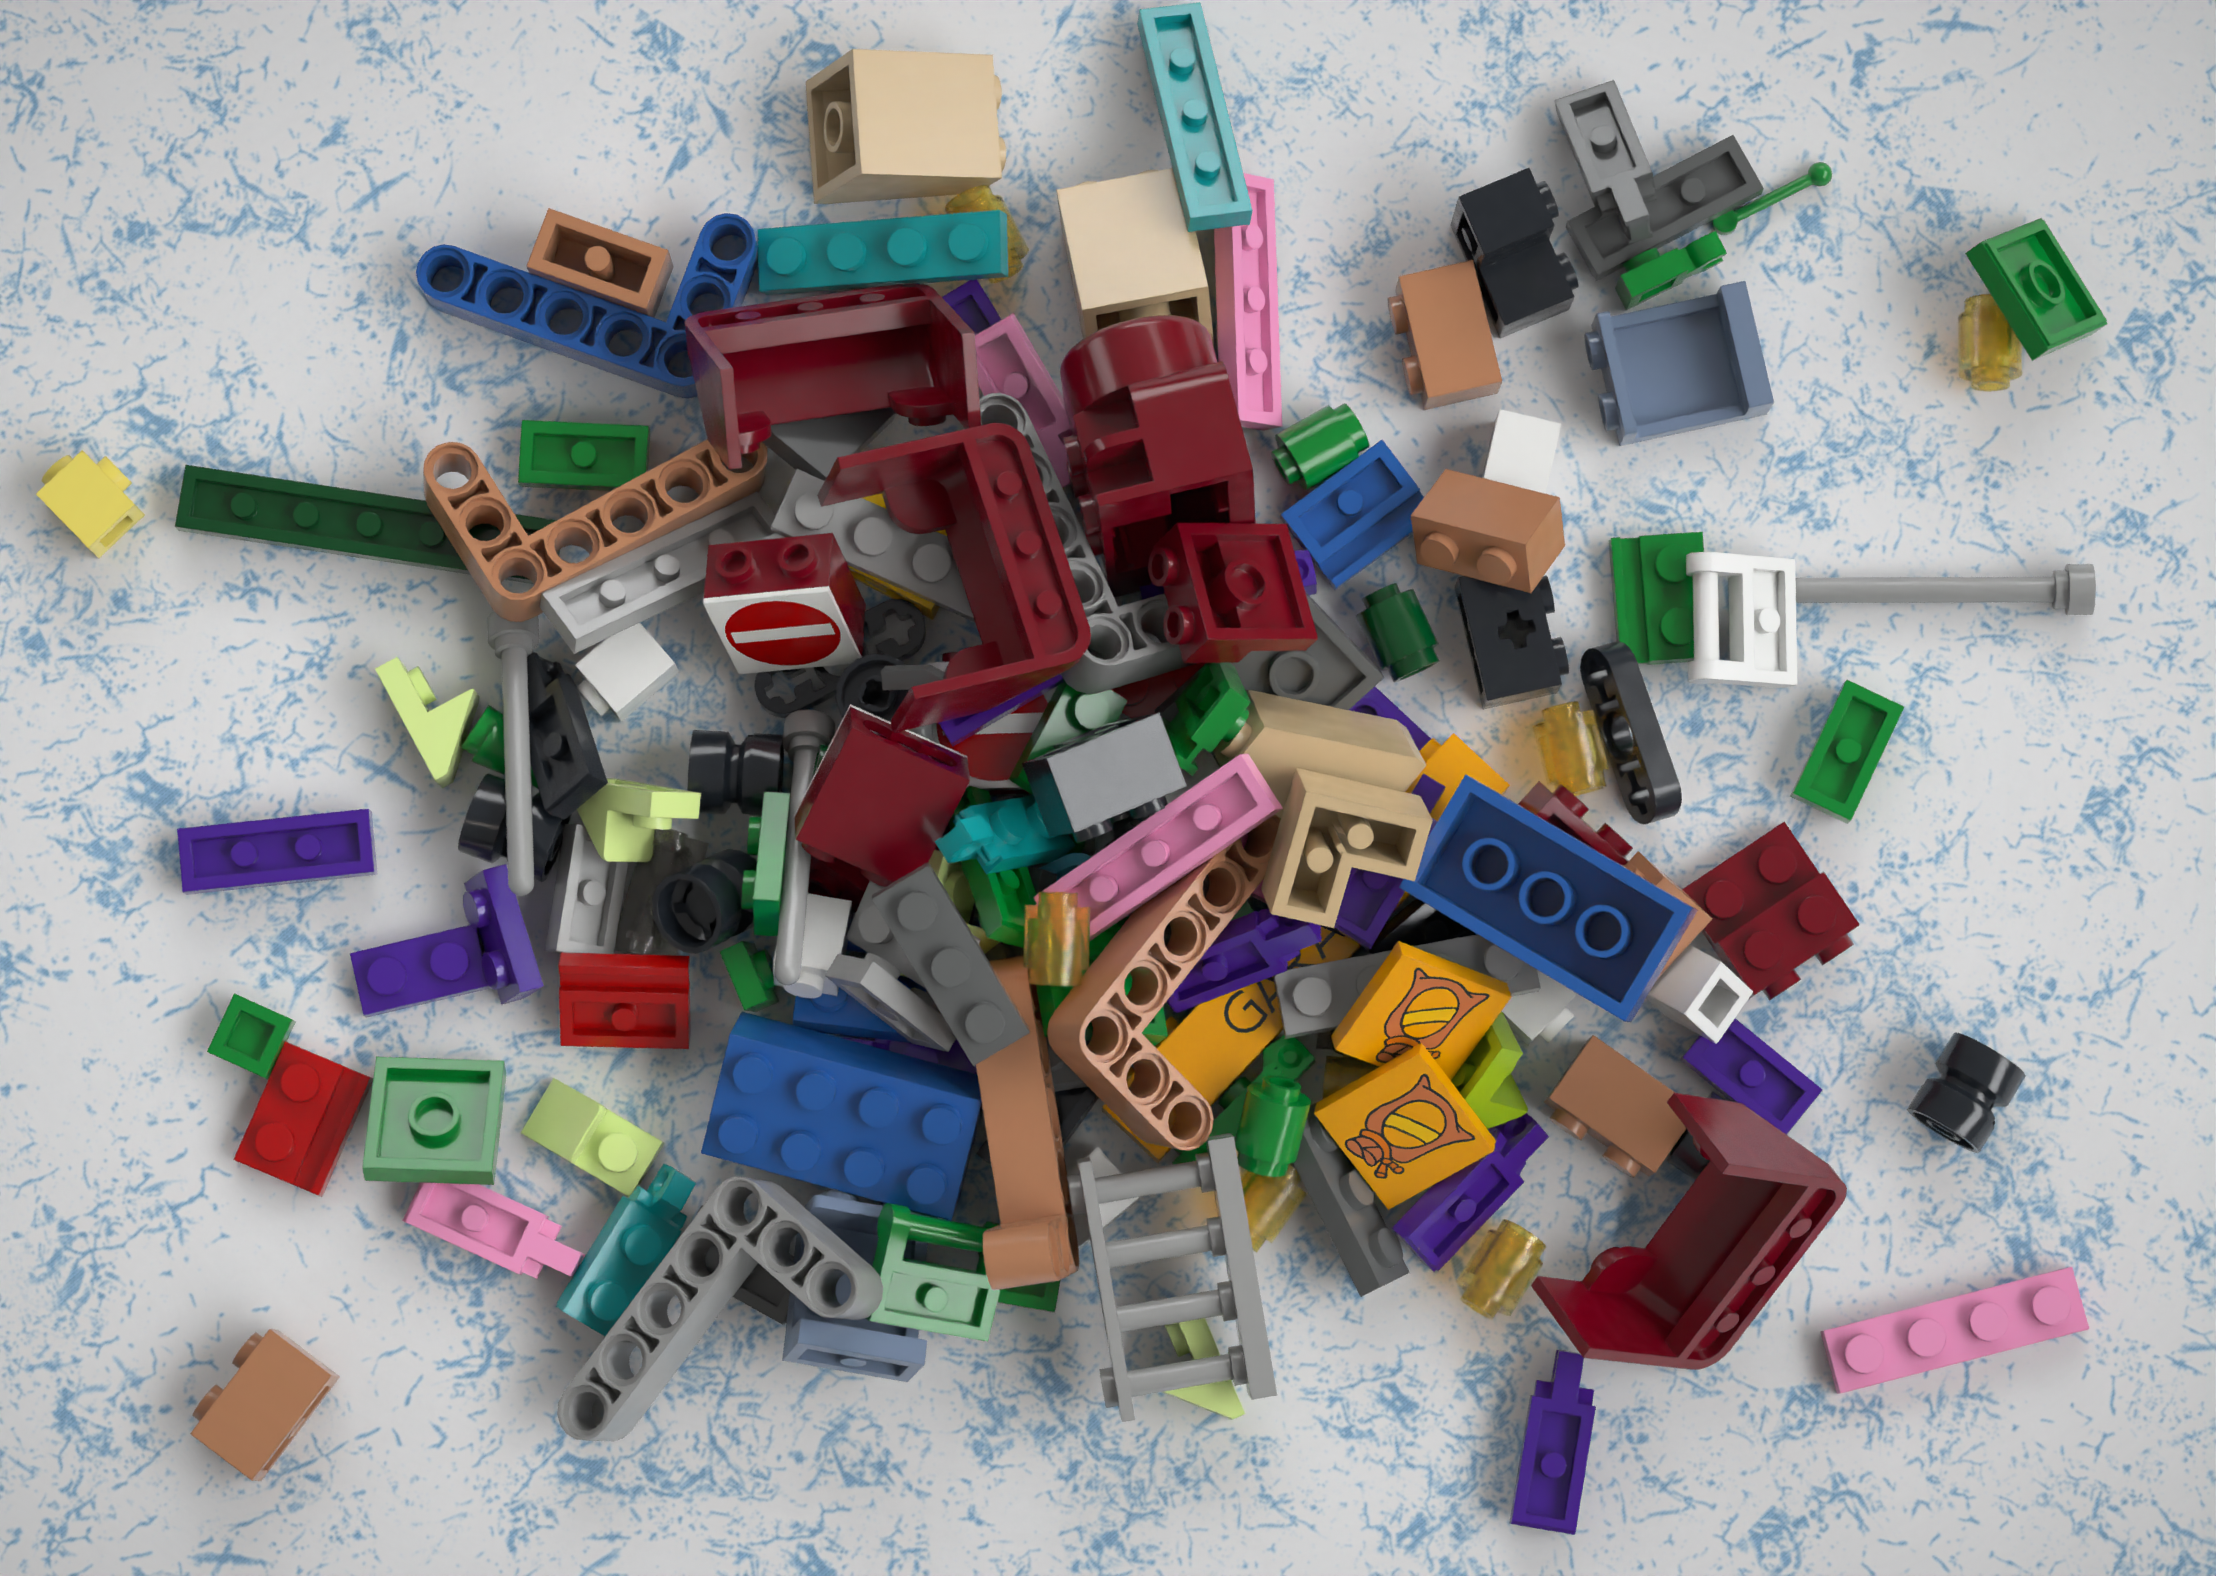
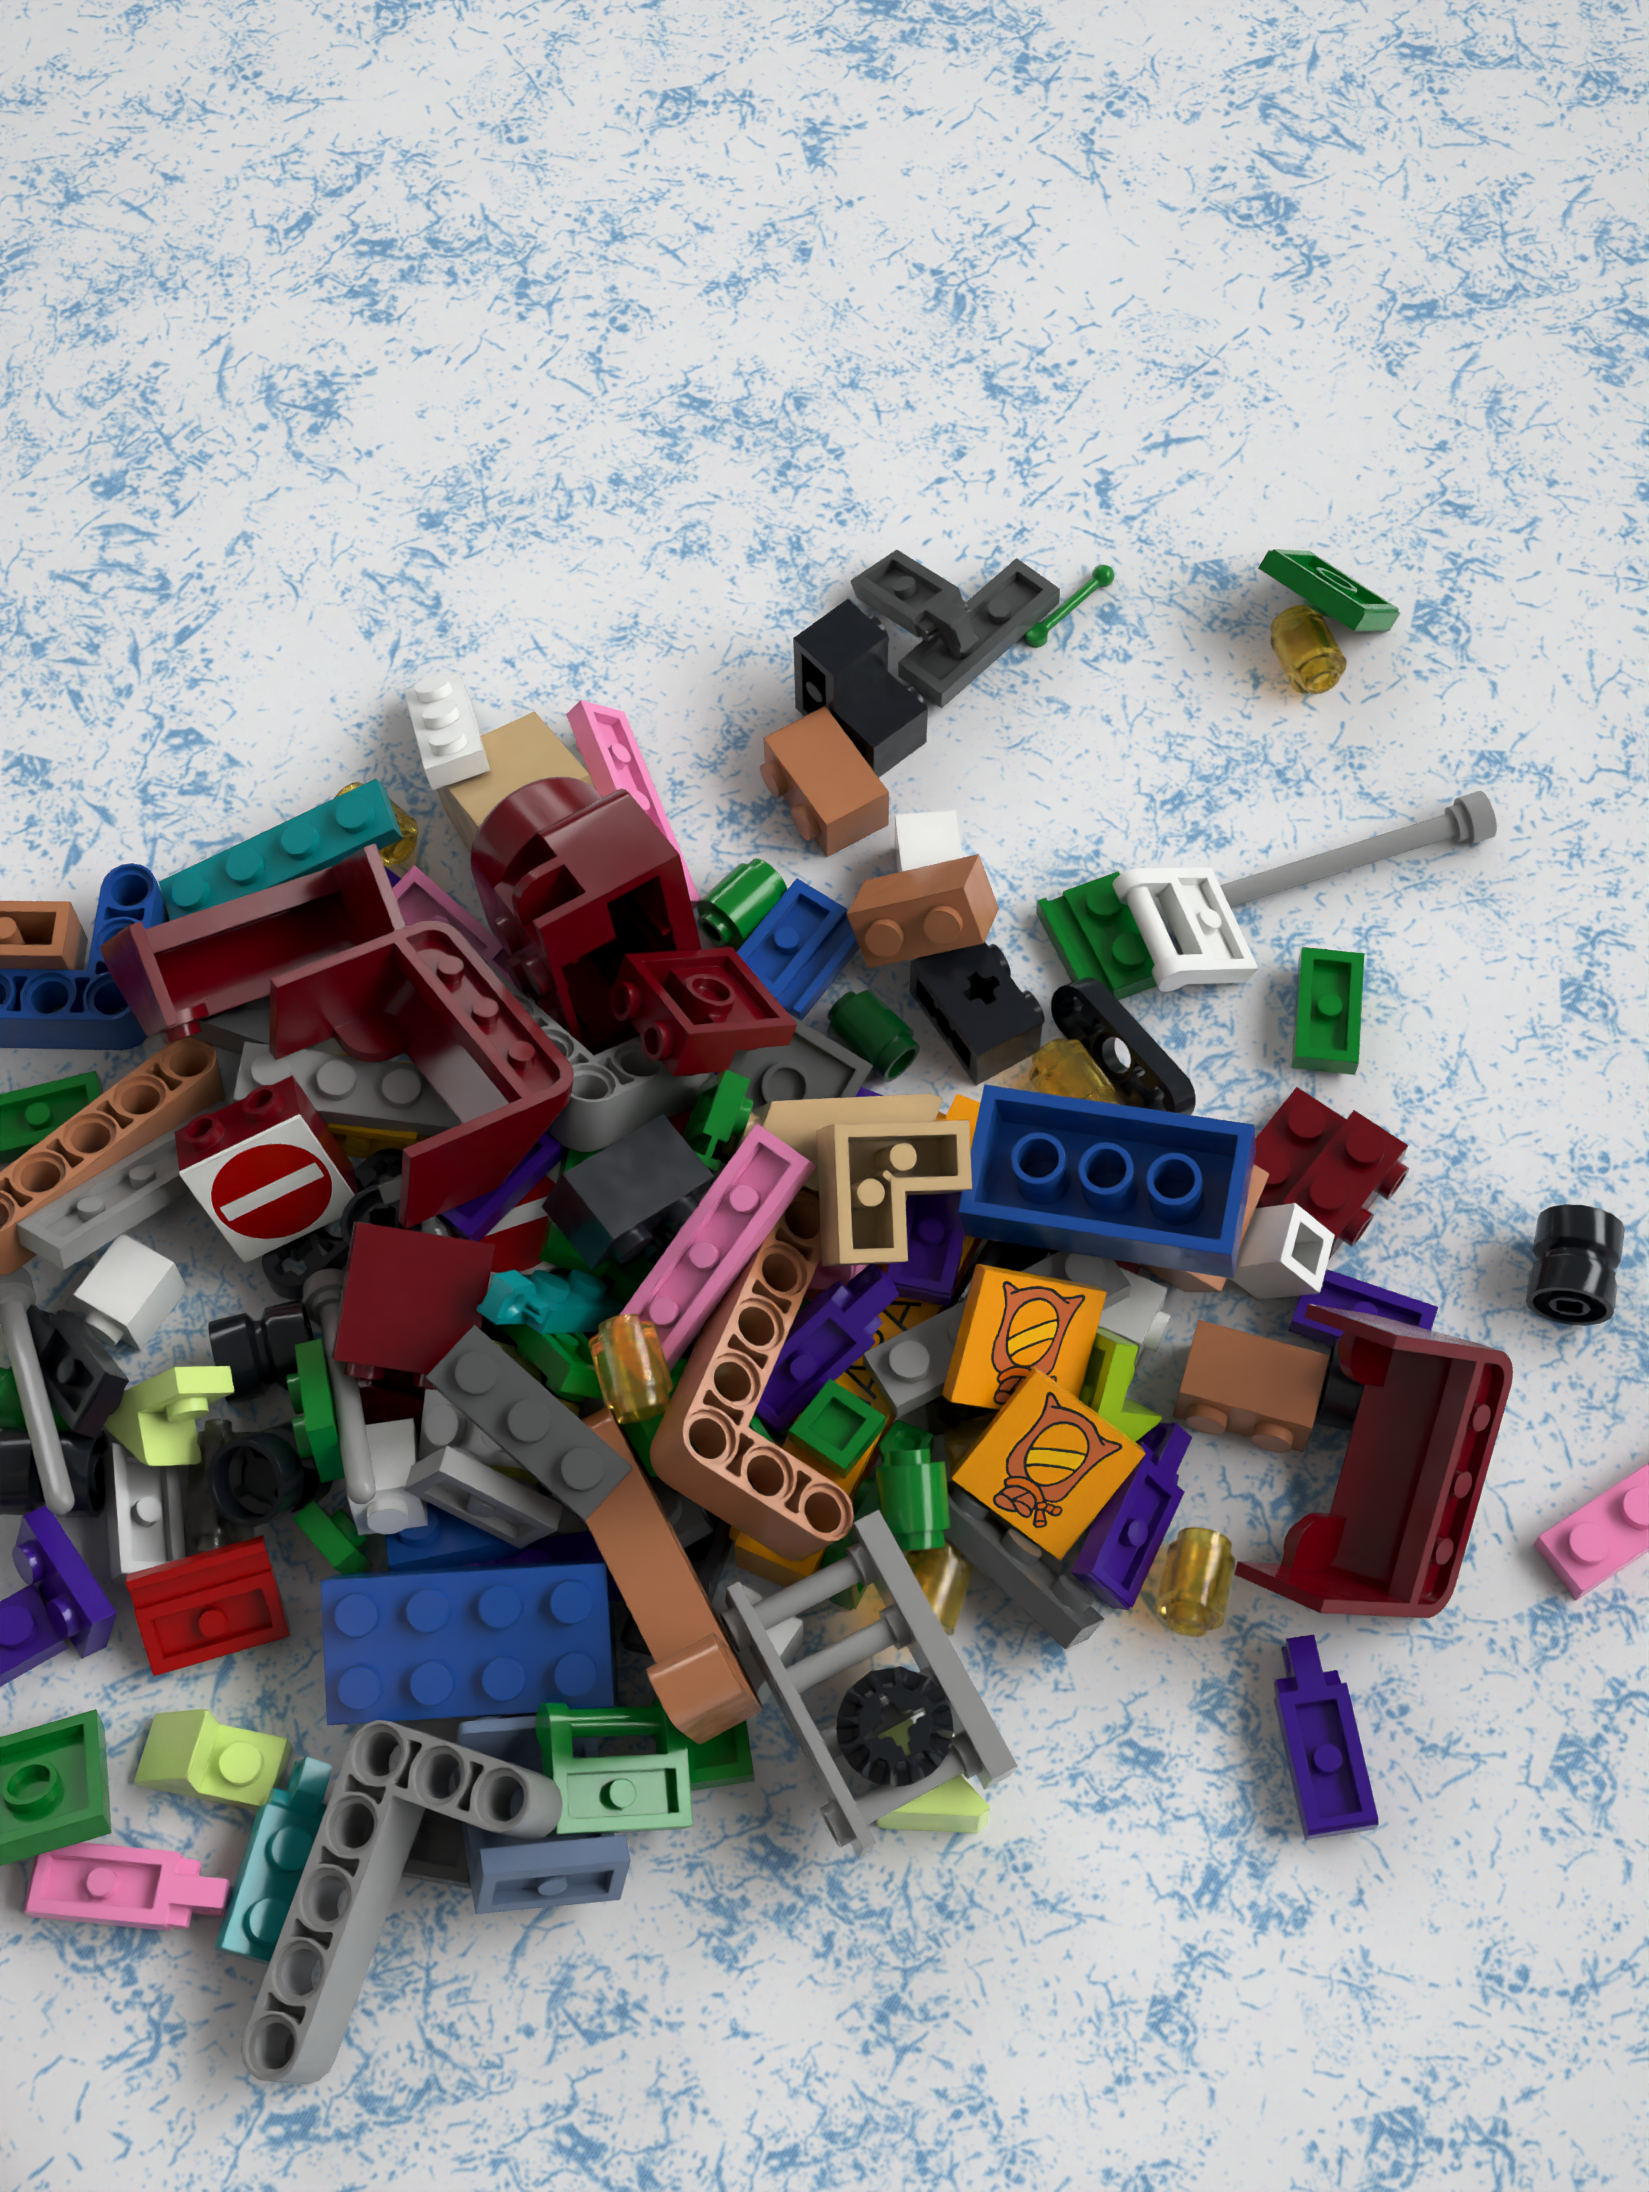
camera: 15 degrees left, 20 degrees down
(903, 125) = (266, 753): tan slope -> none
(1086, 160) = (446, 730): none -> white plate
(1194, 117) = (535, 670): plate -> none
(1205, 1305) = (881, 1758): none -> black gear
(1226, 1036) = (837, 1428): none -> green plate
(1656, 273) = (996, 681): green plate -> none
(1680, 366) = (1046, 748): sand blue panel -> none

